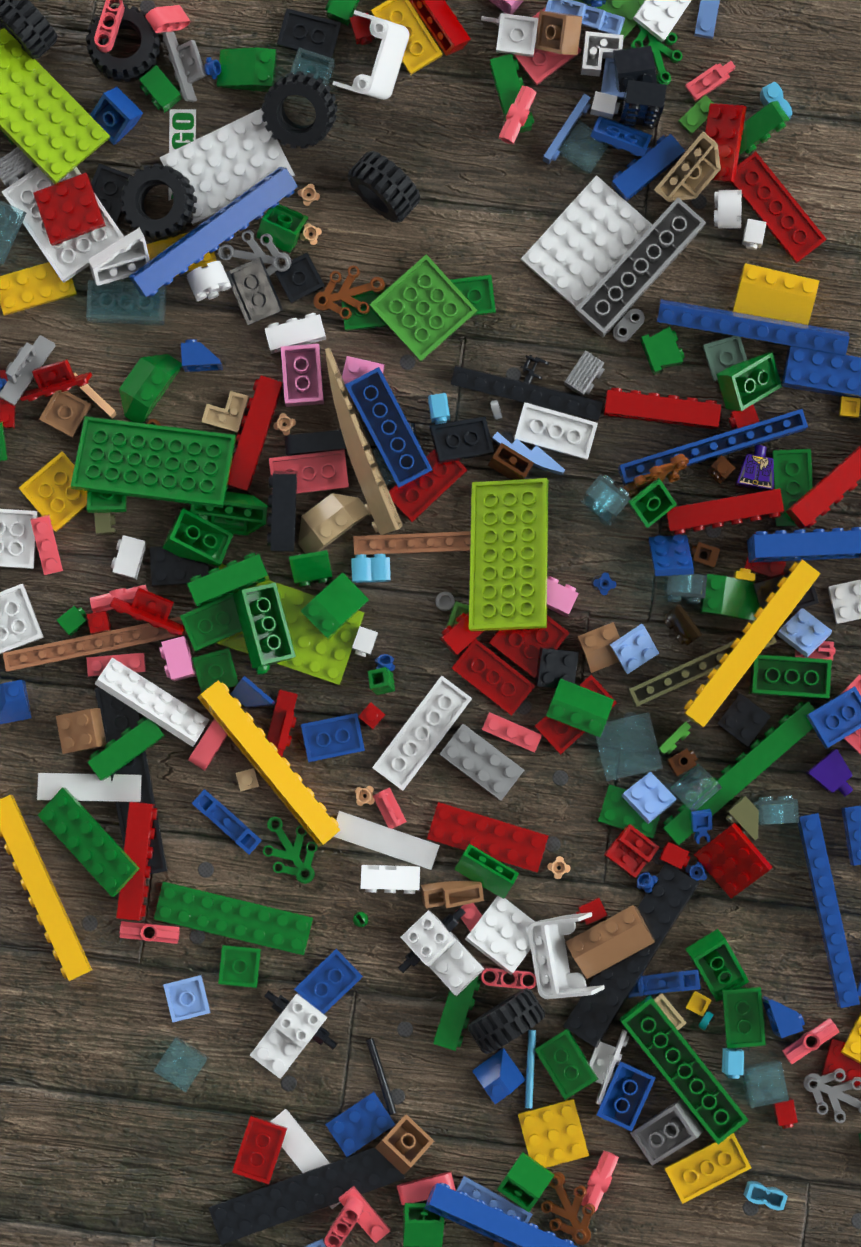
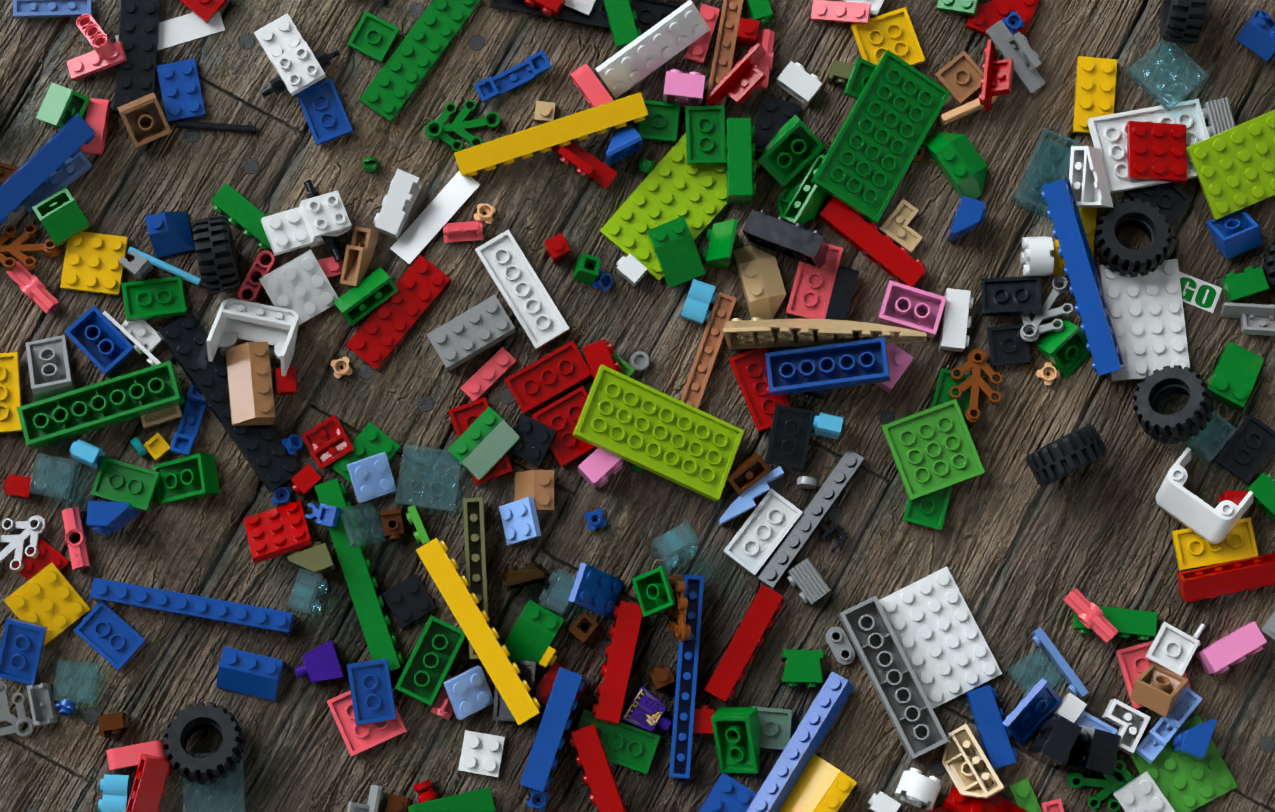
camera: 110 degrees right, 5 degrees down
(212, 67) = (1247, 342): blue plate -> none
(264, 625) = (683, 177): green brick -> none
(283, 418) = (873, 272): light nougat plate -> none
(310, 188) = (1091, 382): light nougat plate -> none
(332, 737) = (551, 204): blue plate -> none
(543, 1089) = (138, 268): none -> light grey hinge

